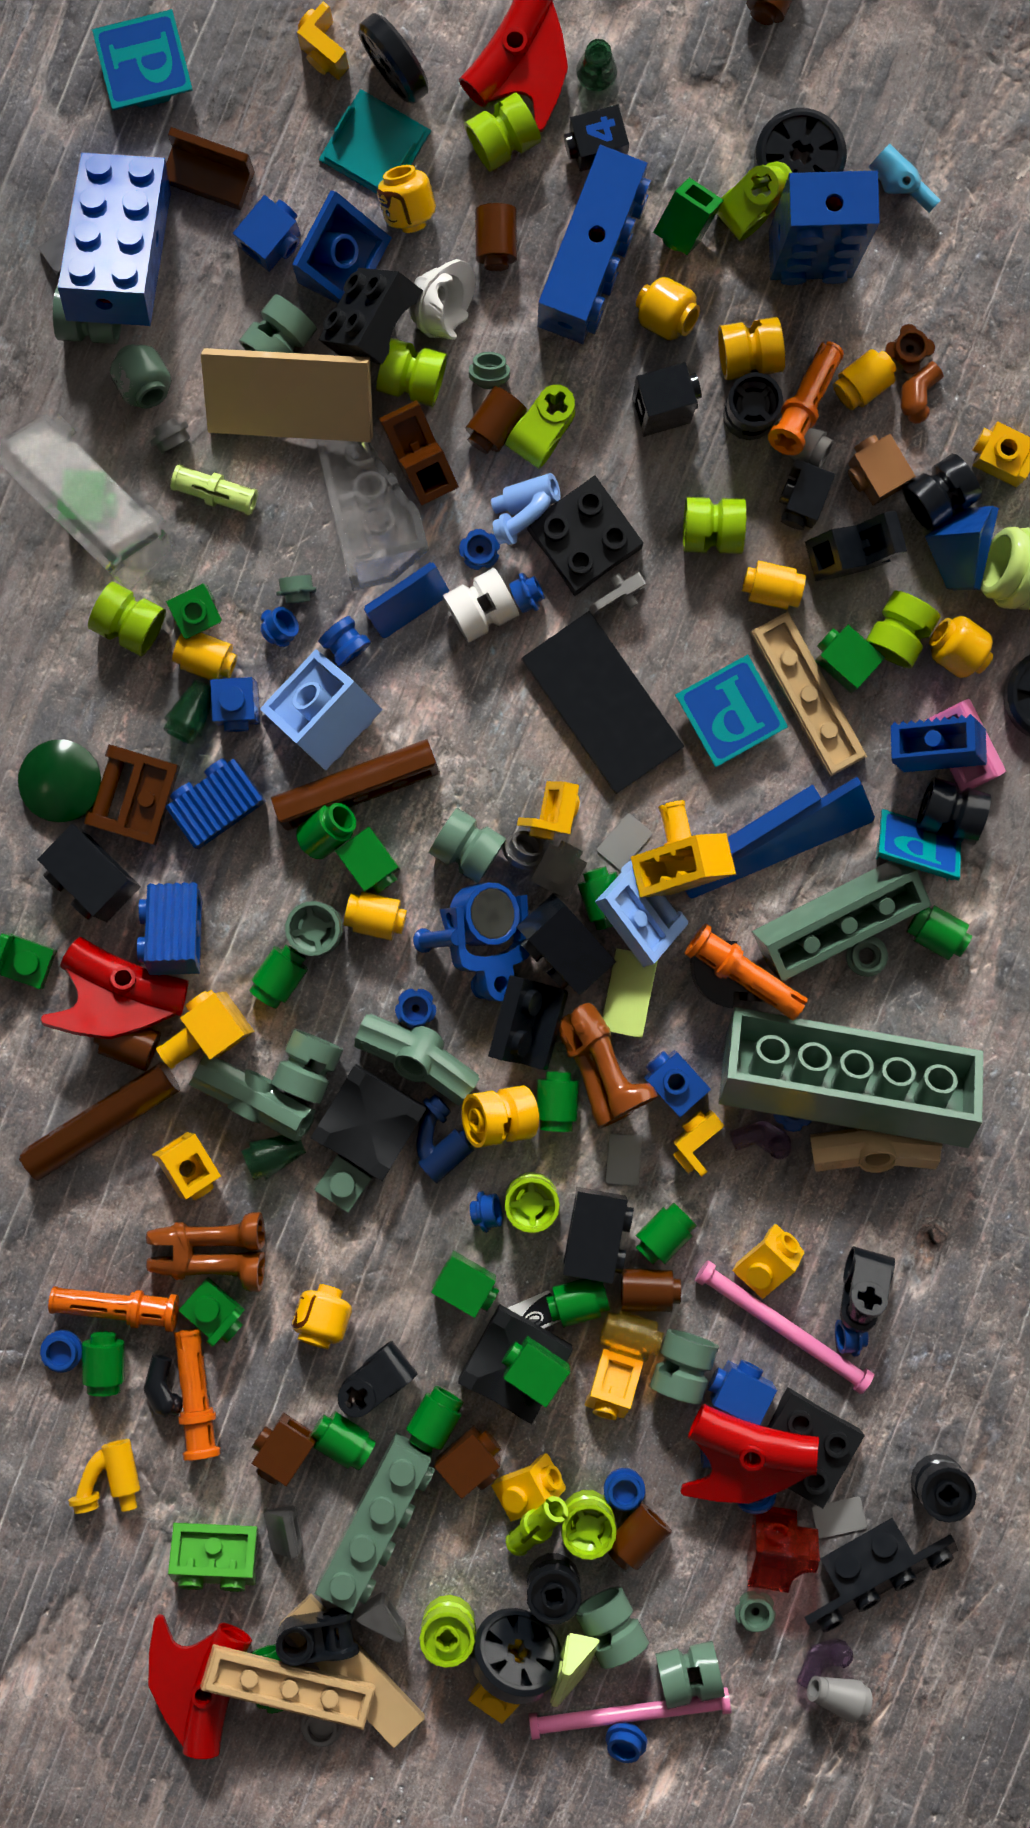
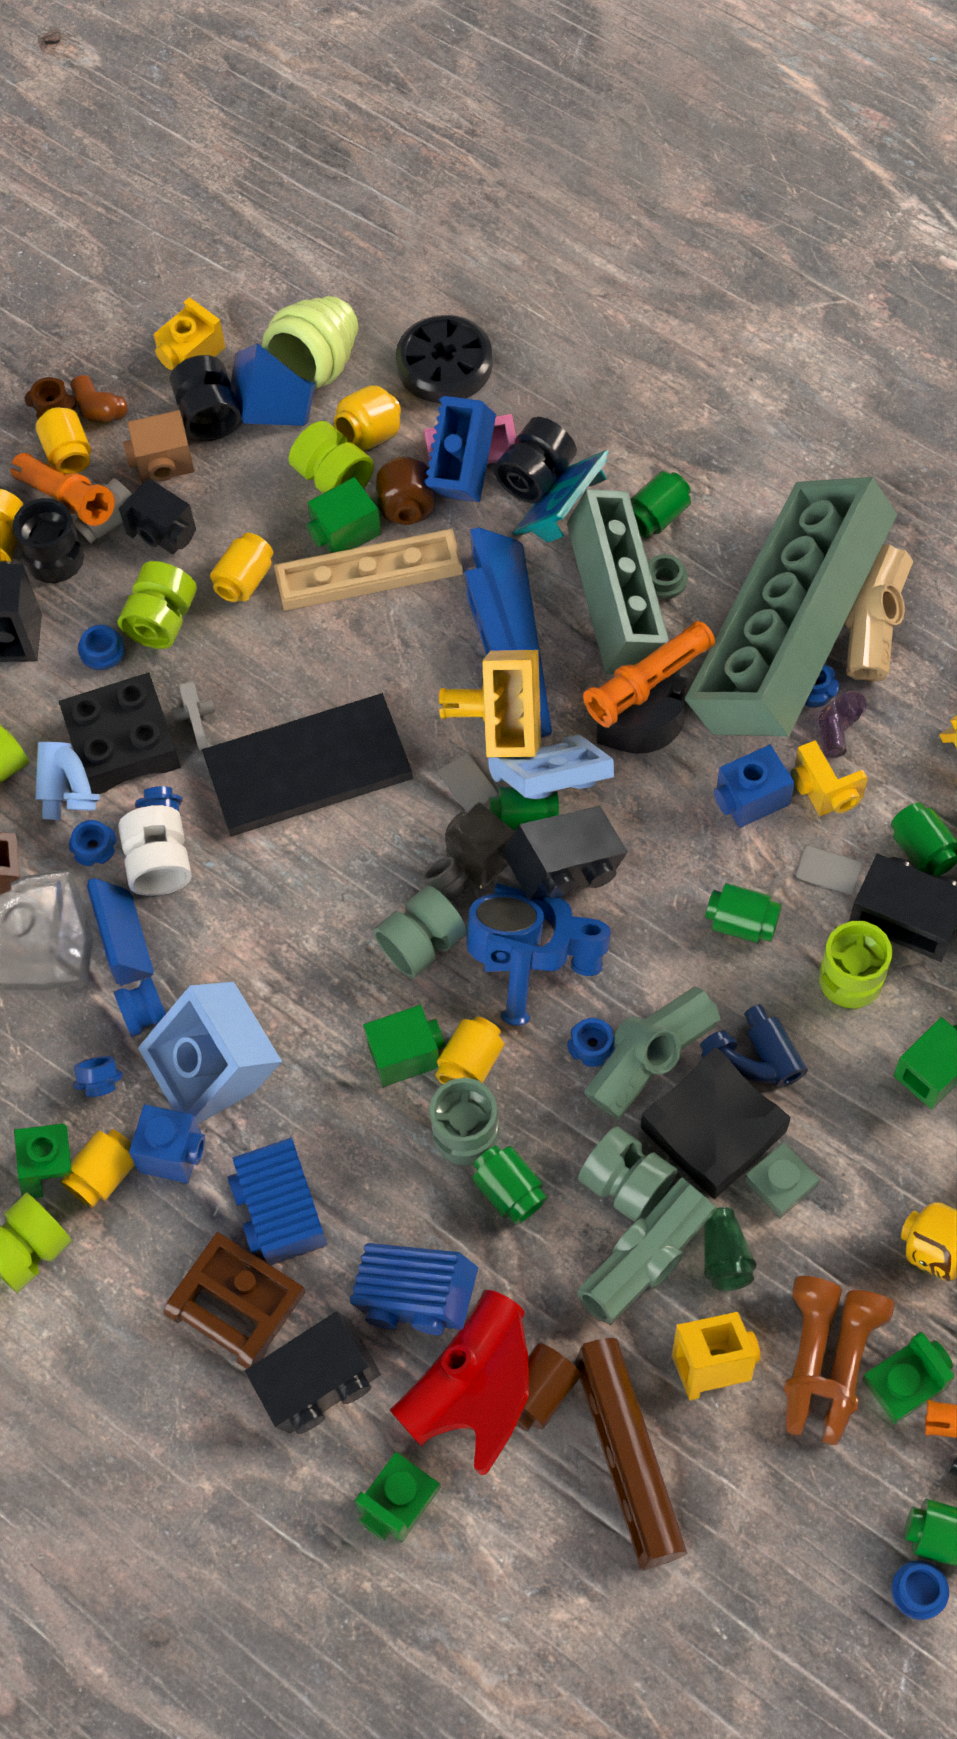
camera: 70 degrees left, 25 degrees down
(59, 781) = (187, 1388): dark green dish -> none
(134, 1309) = (883, 1476): orange pin -> none
(189, 714) = (161, 1204): clear green cone -> none
(210, 1024) = (546, 1267): yellow brick -> none
(296, 588) = (60, 1046): sand green plate -> none
(326, 830) = (352, 1079): green brick -> none
(357, 783) = (310, 1040): reddish brown brick -> none
(486, 1211) = (854, 1023): blue plate -> none
(500, 1116) = (745, 970): yellow wheel -> none
(528, 1023) = (645, 915): black bracket -> none
(557, 811) = (410, 833): yellow bracket -> none
(607, 1088) = (751, 829): dark orange piece -> none
(628, 994) = (644, 812): yellowish green slope -> none
(665, 489) = (101, 647): none -> blue plate
(731, 710) = (360, 638): piece -> none
(856, 547) = (231, 479): black brick -> none
(892, 701) = (402, 491): none -> reddish brown head

